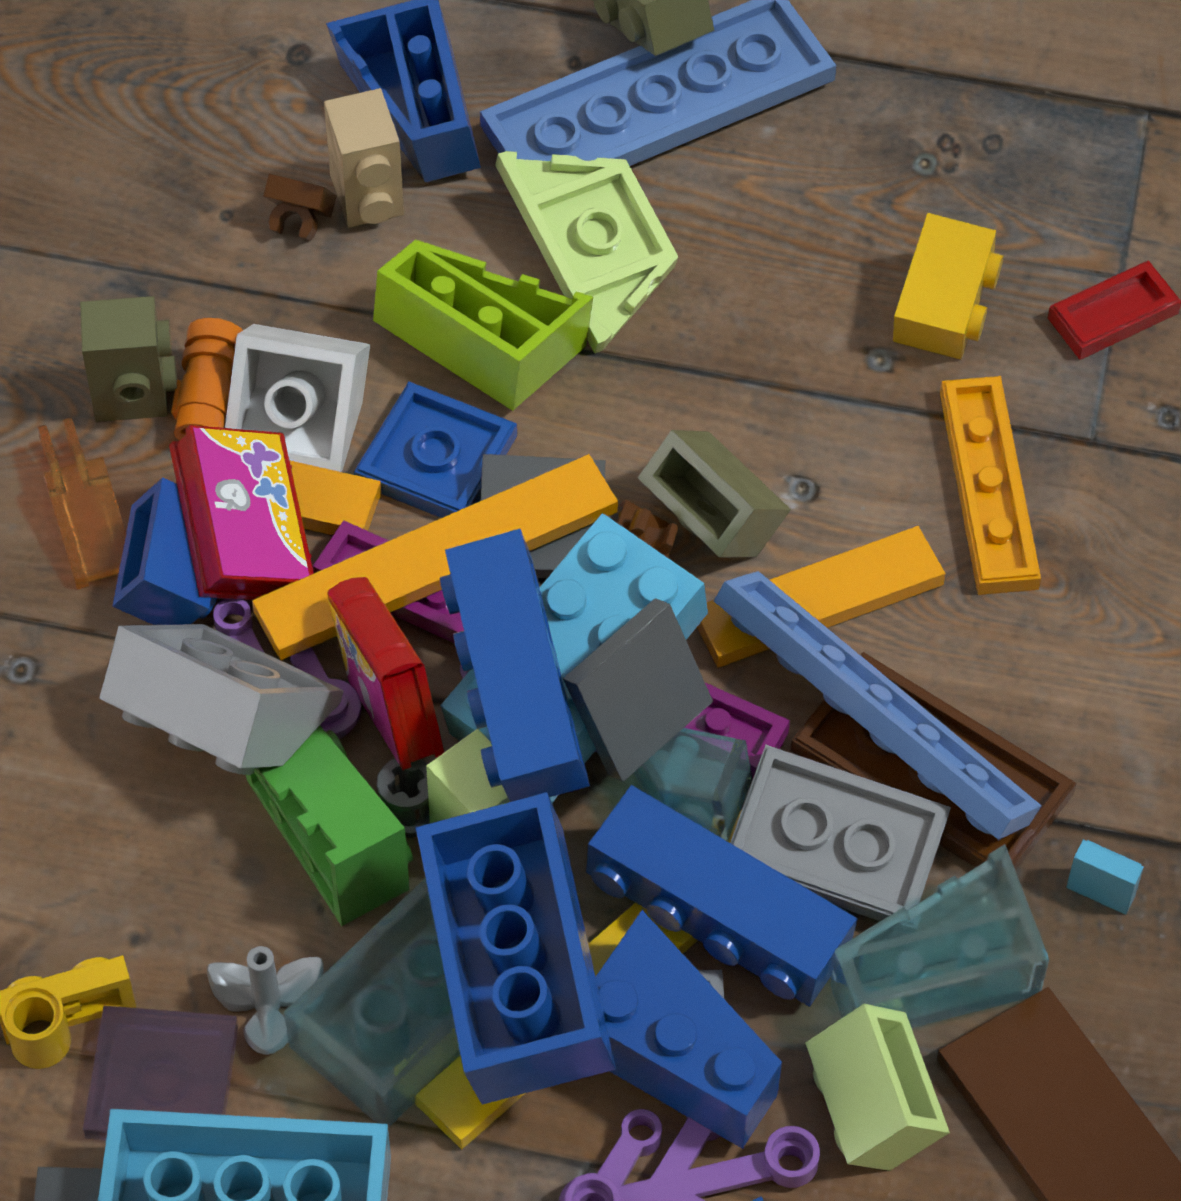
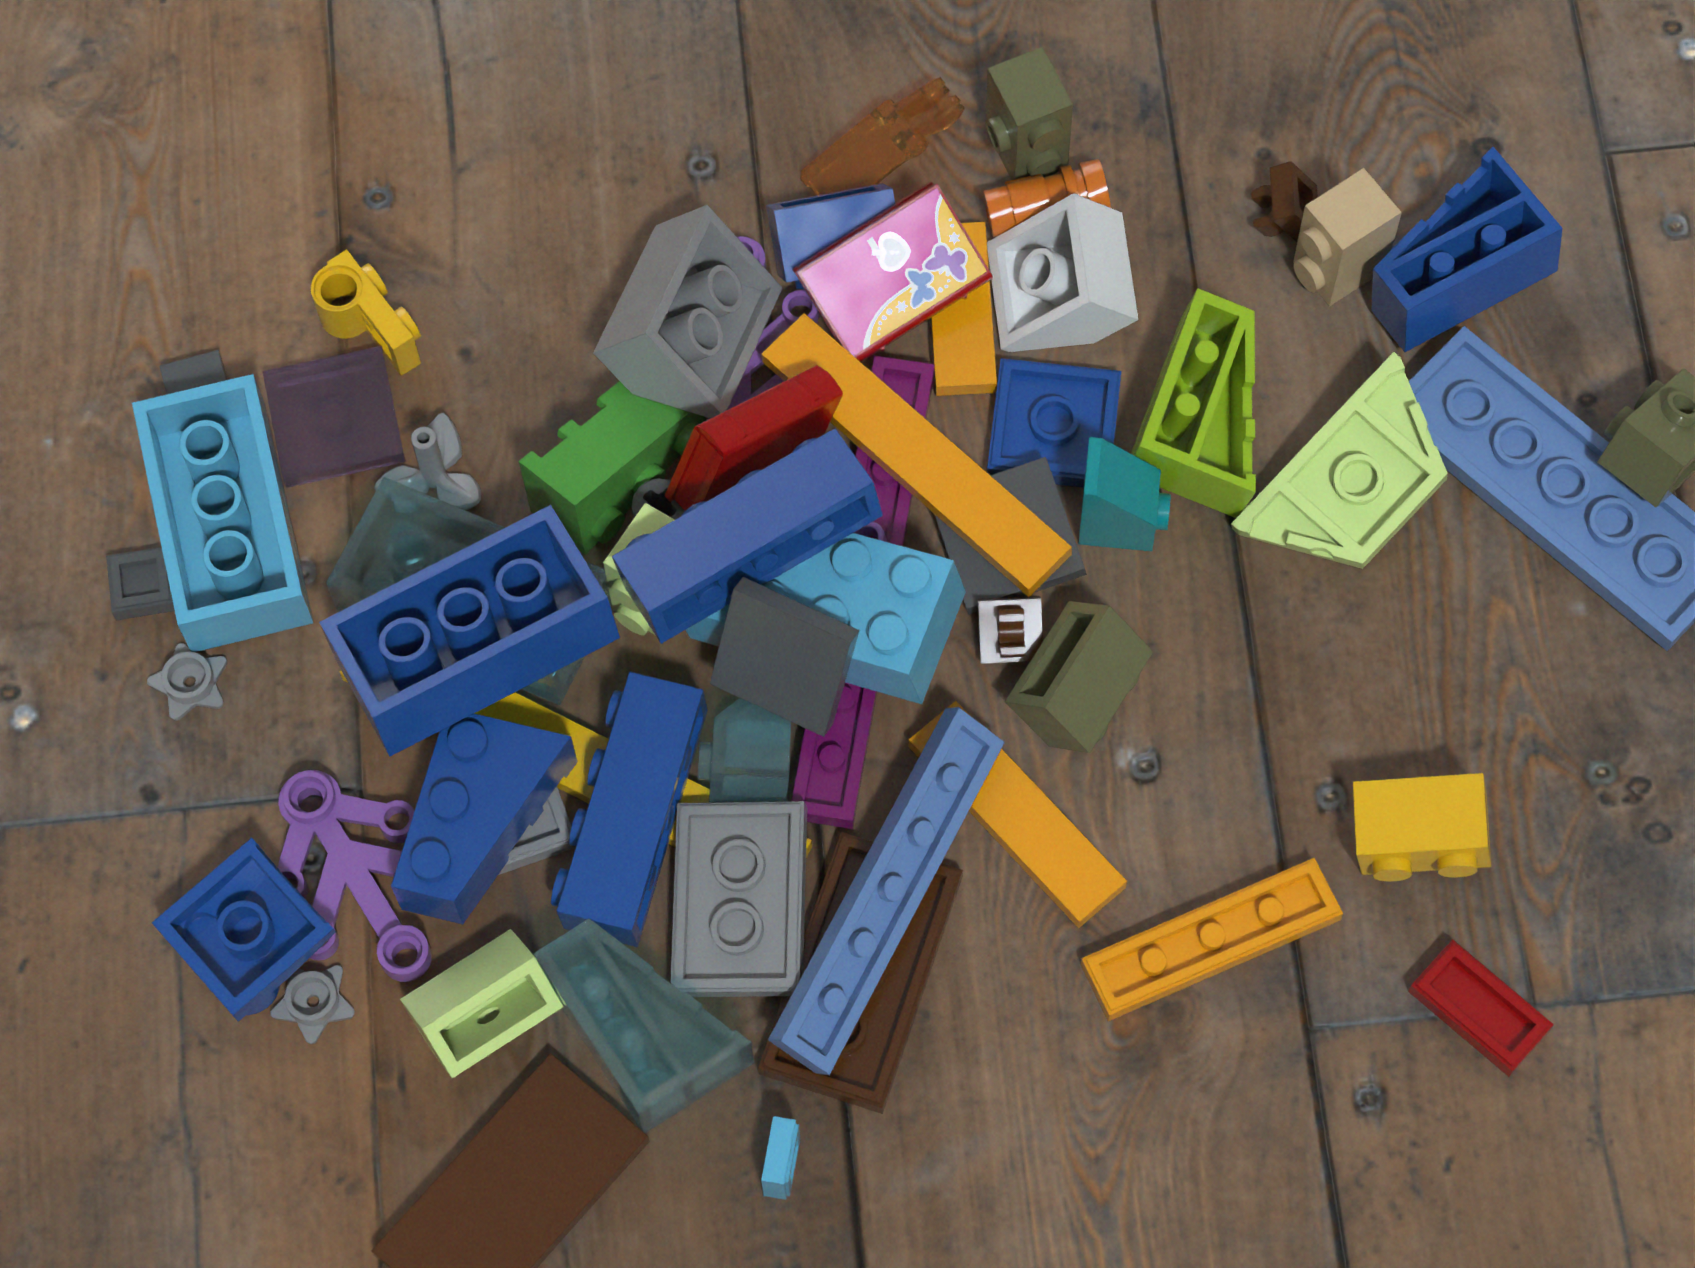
camera: 75 degrees right, 10 degrees up
(547, 413) = (1121, 499): none -> teal slope

